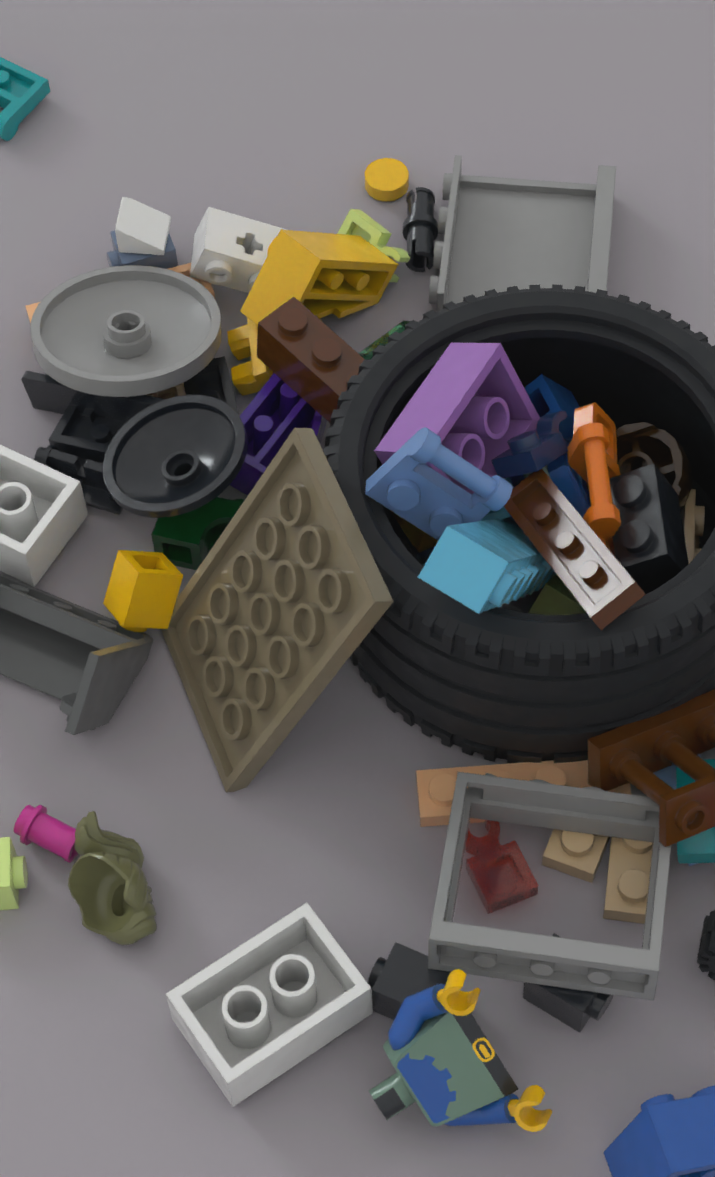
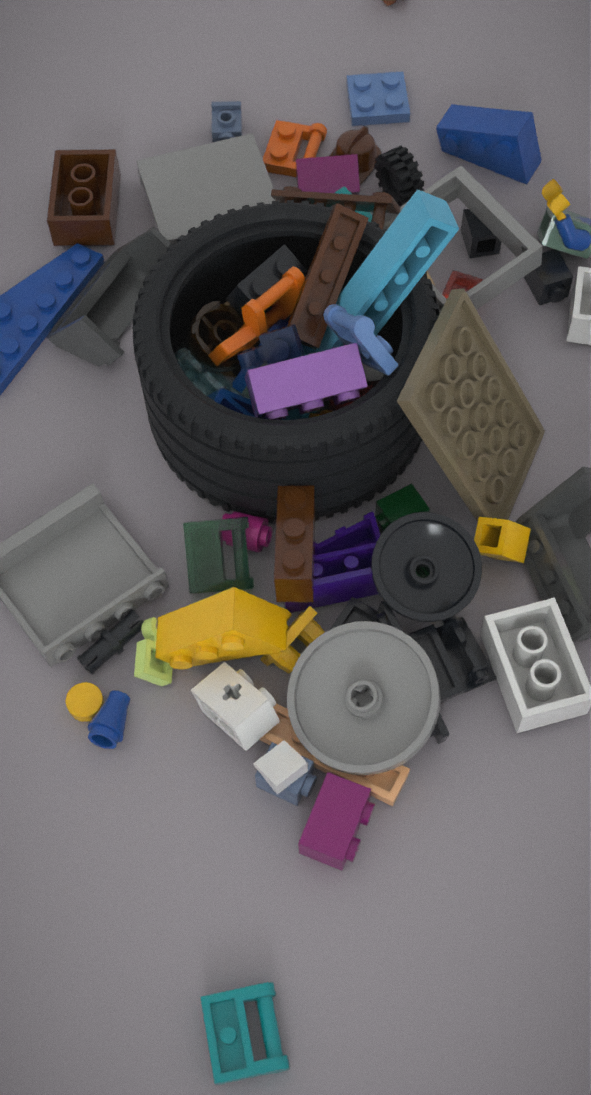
camera: 135 degrees left, 5 degrees up
(56, 248) = (335, 822): none -> magenta brick
(342, 176) = (109, 722): none -> blue cone

